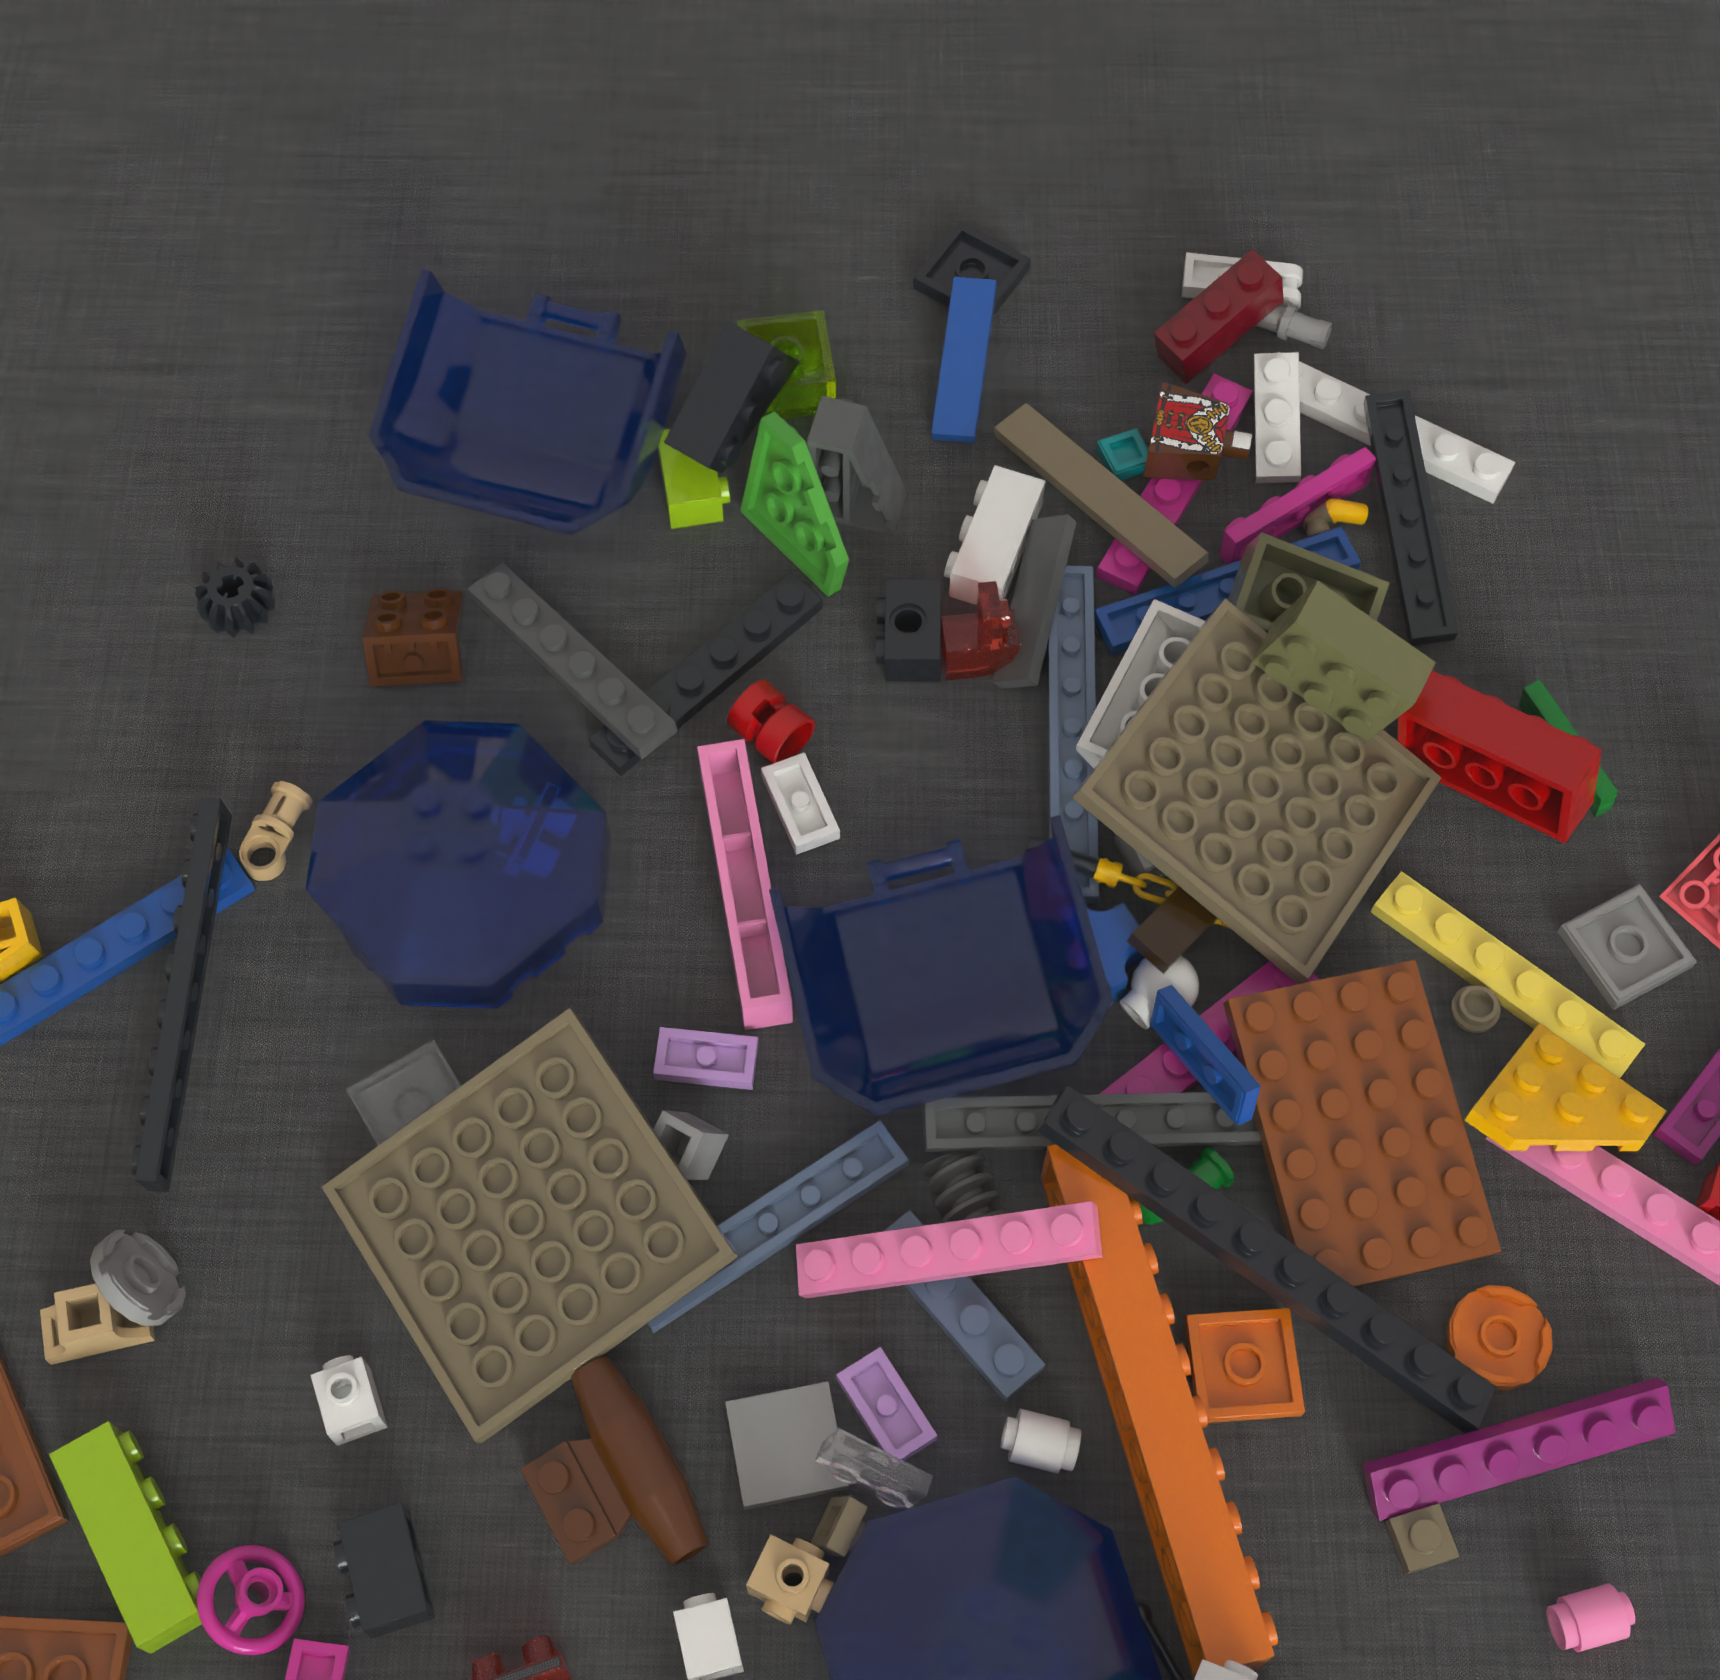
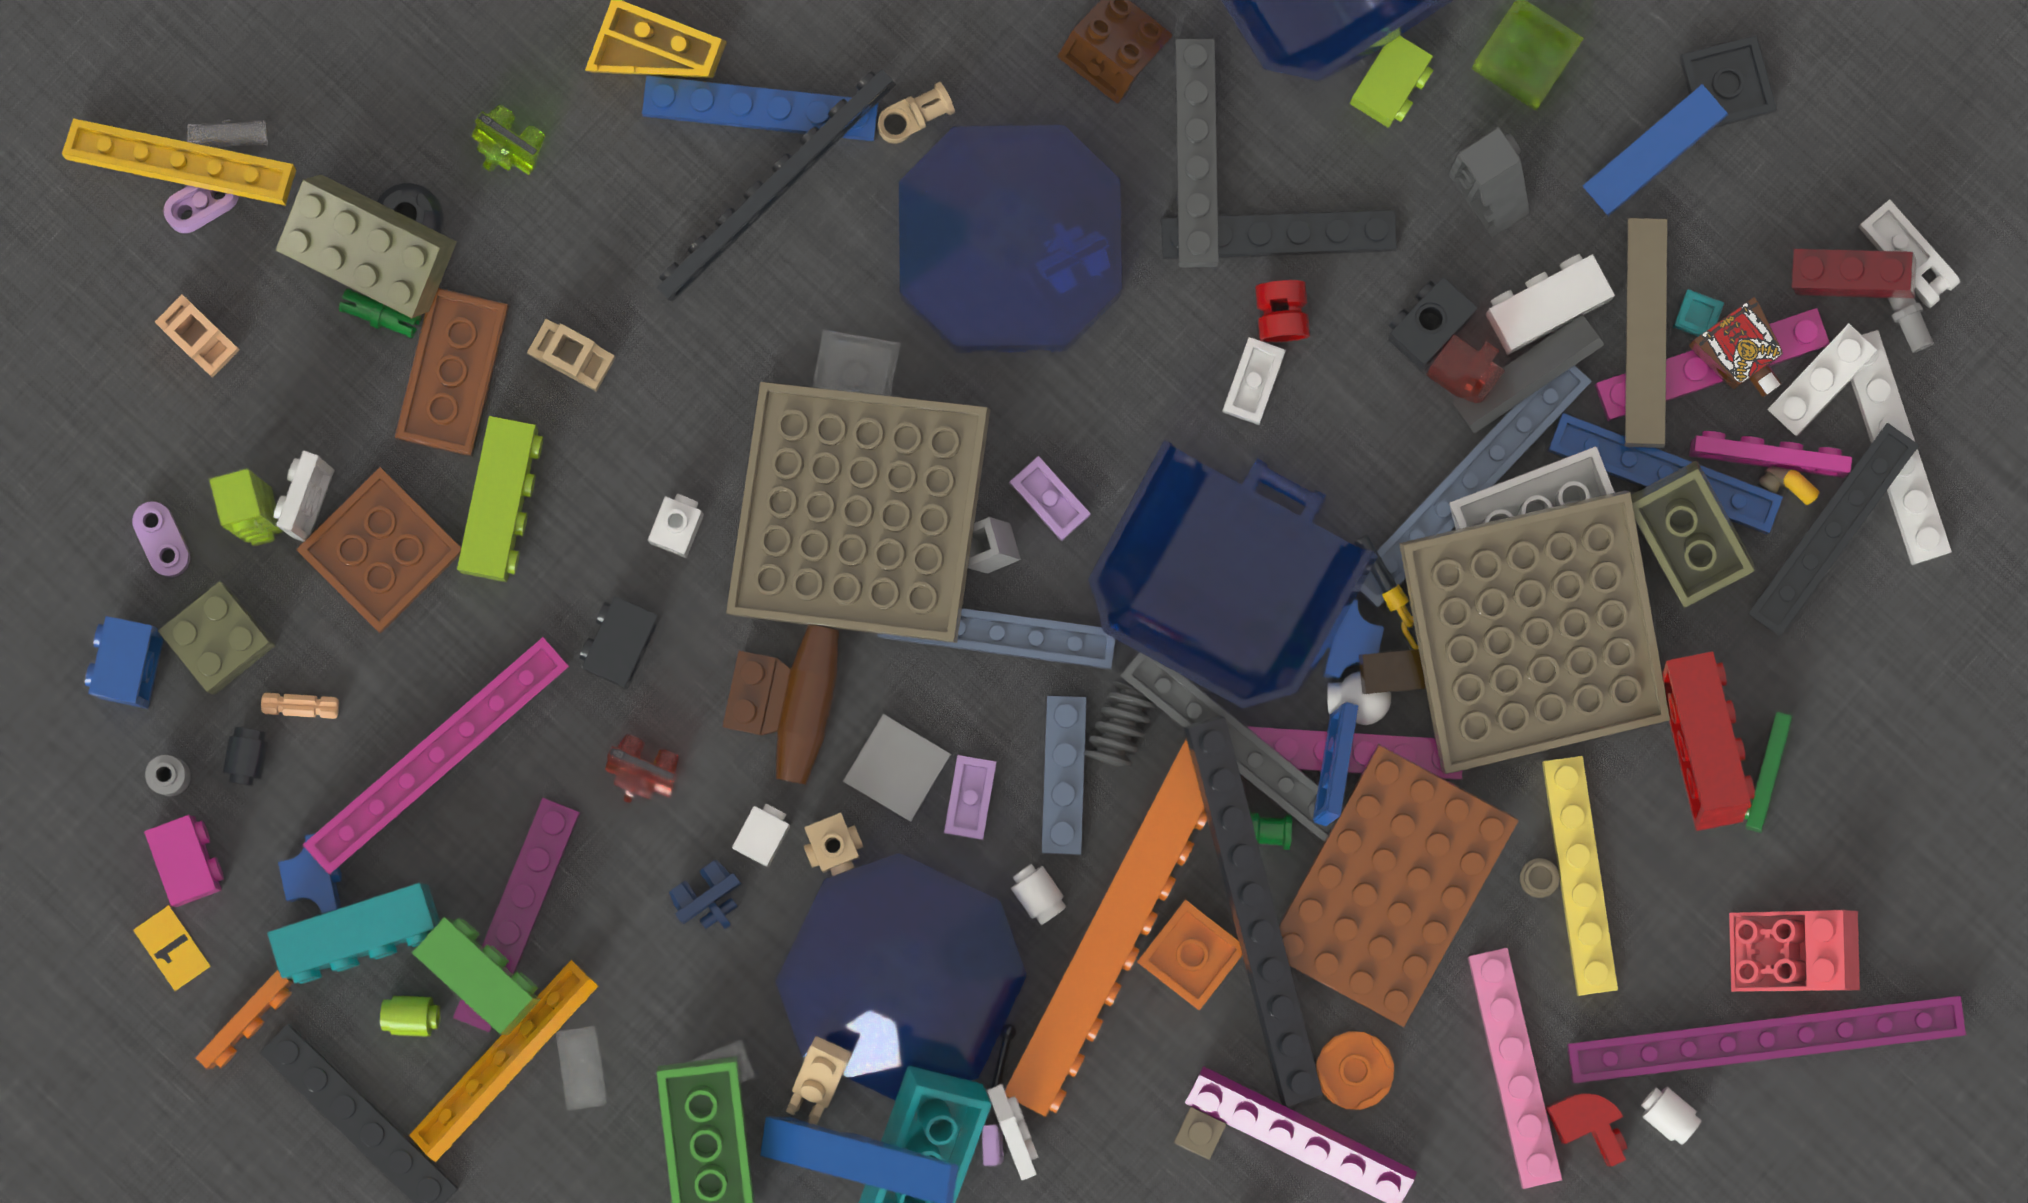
camera: 40 degrees right, 20 degrees up
(137, 1277) = (613, 350): light grey tile -> none
(262, 1581) = (549, 601): dark pink piece -> none
(729, 398) = (1453, 63): black wedge -> none
(745, 885) = (1169, 404): bright pink brick -> none
(791, 506) = (1429, 165): bright green plate -> none
(840, 1526) = (884, 839): dark tan plate -> none
(857, 1461) = (922, 812): clear plate -> none
(949, 1250) = (1078, 744): bright pink plate -> none
(1343, 662) = (1655, 602): olive brick -> none
(1562, 1100) = (1528, 977): yellow plate -> none
(1626, 946) = (1674, 923): light grey tile -> none

